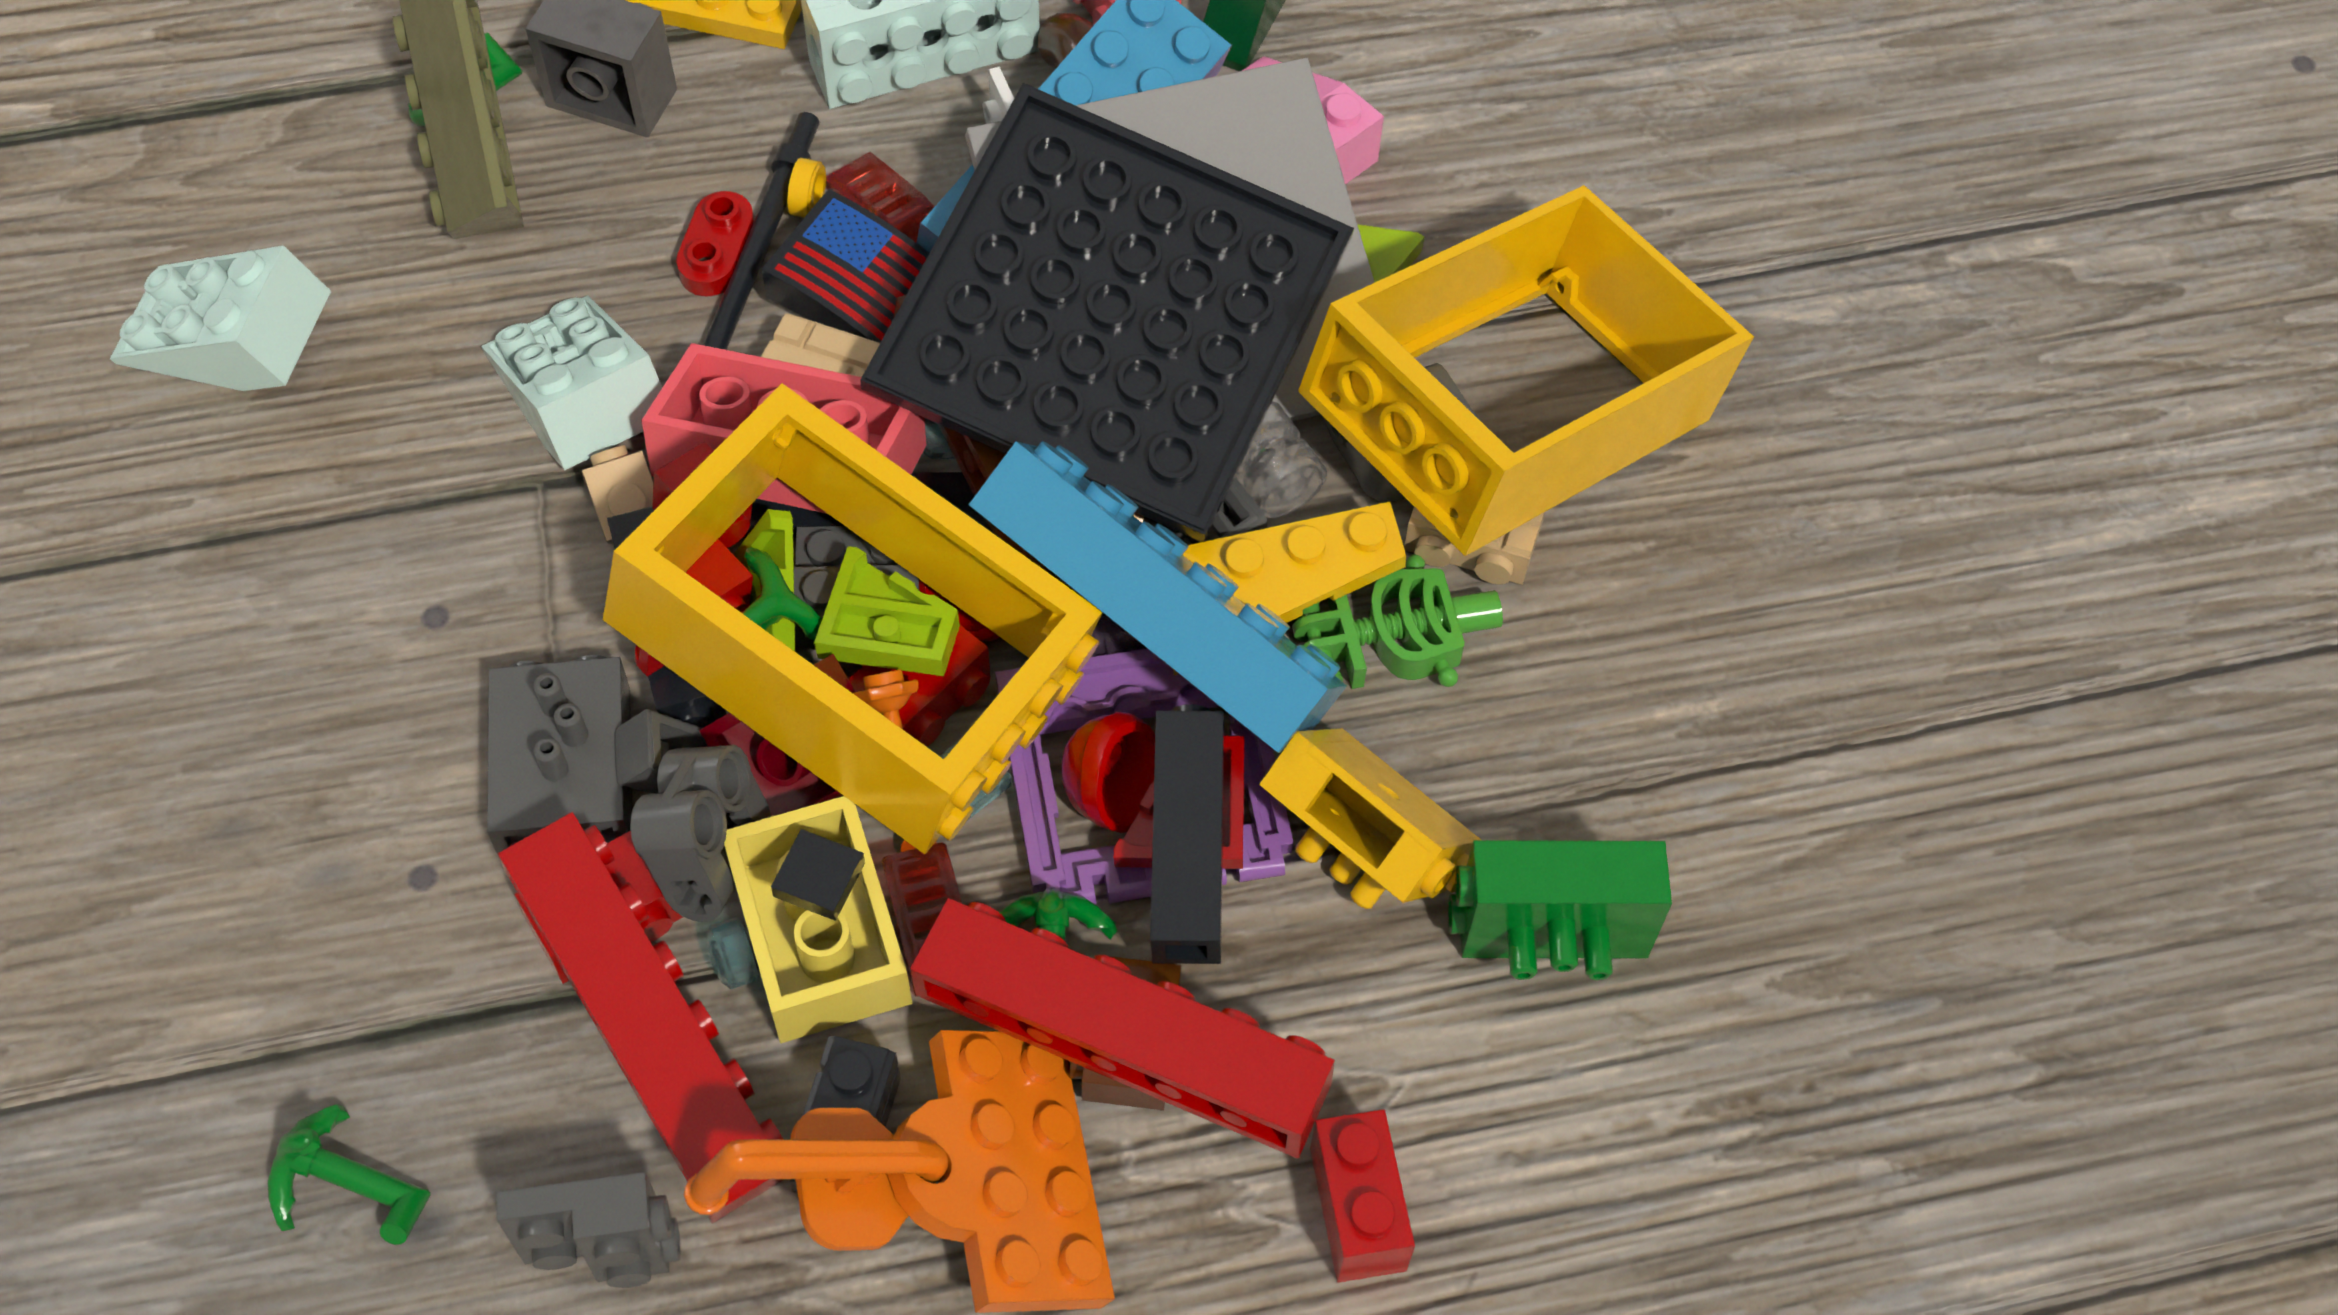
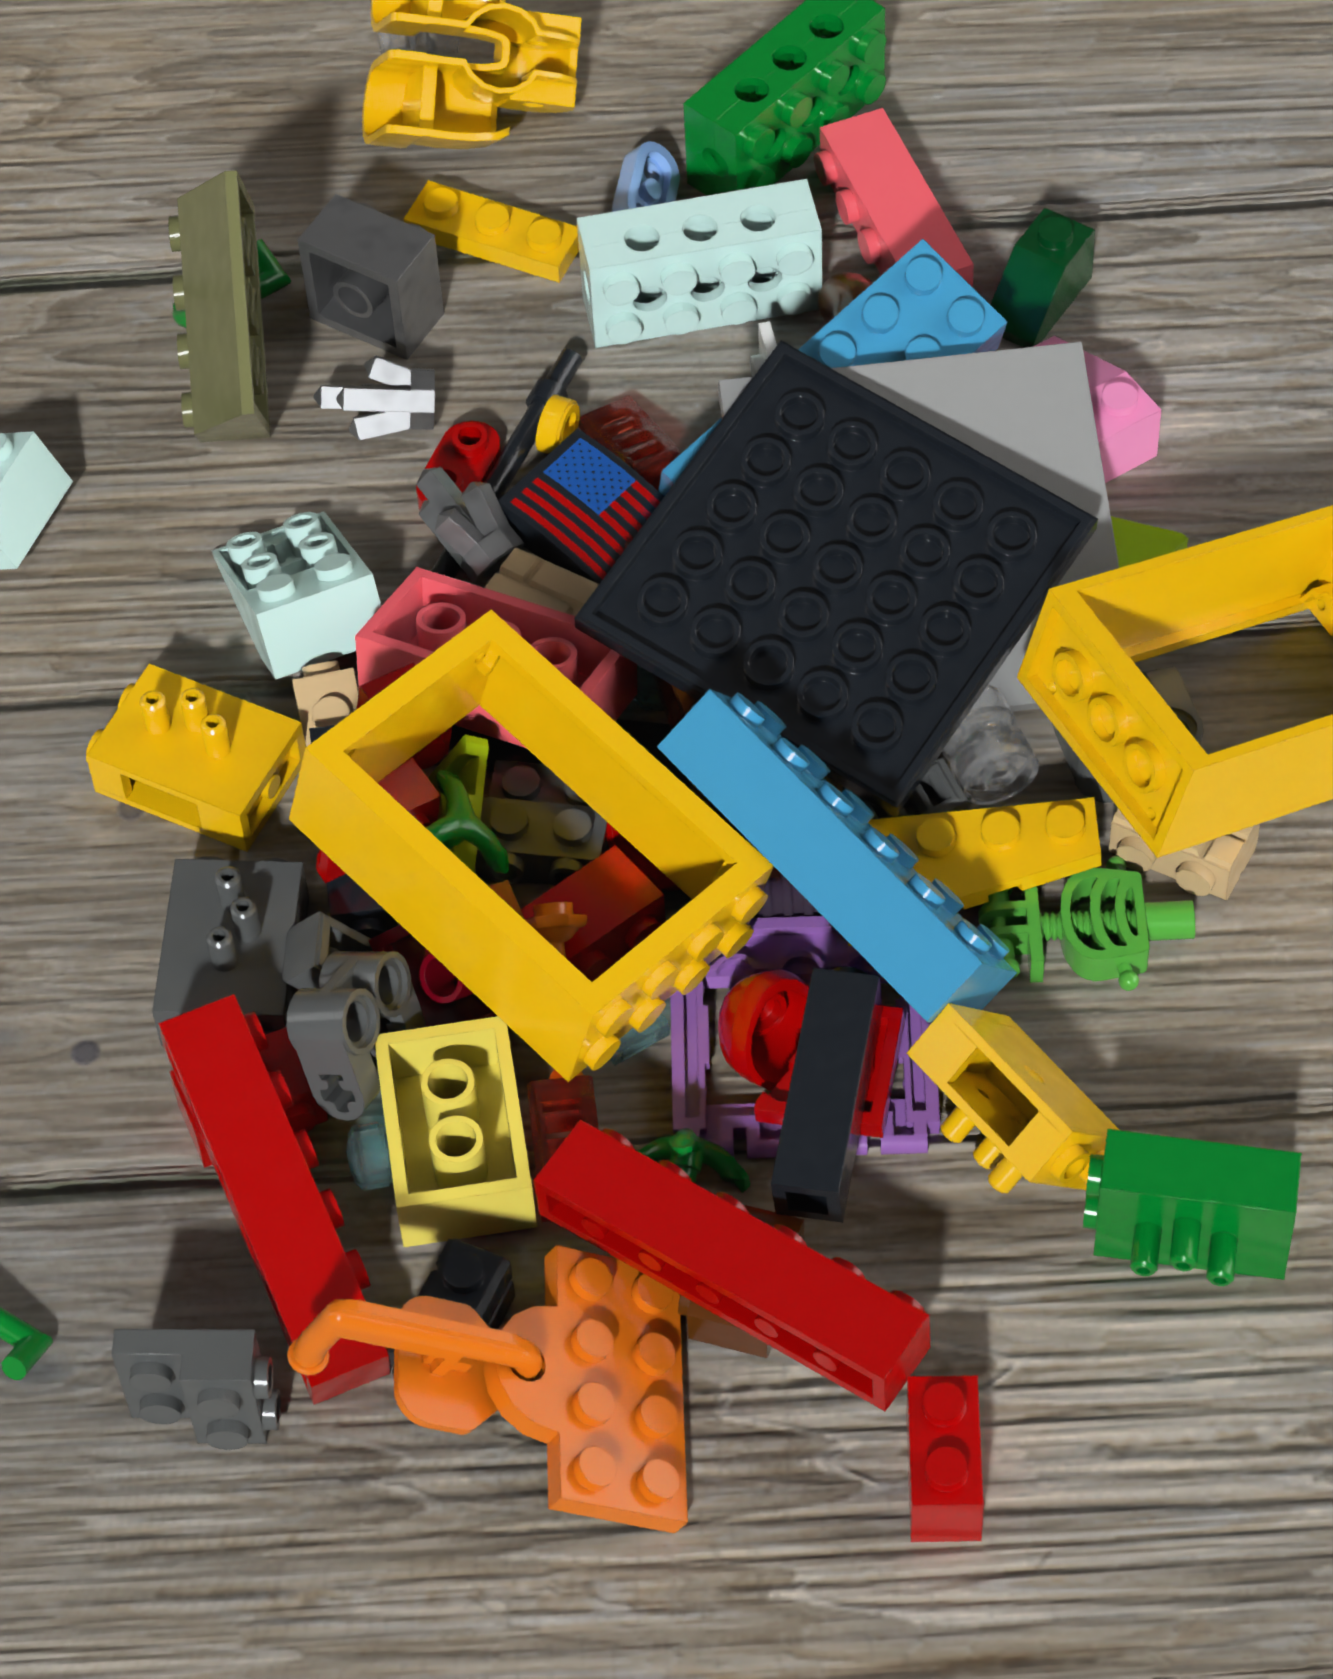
camera: 15 degrees right, 5 degrees down
(495, 558) = (196, 756): none -> yellow piece
(647, 183) = (400, 403): none -> rock
(734, 294) = (467, 523): none -> flat silver rock
(818, 874) = (460, 1084): black tile -> none
(885, 621) = (564, 855): lime wing -> none

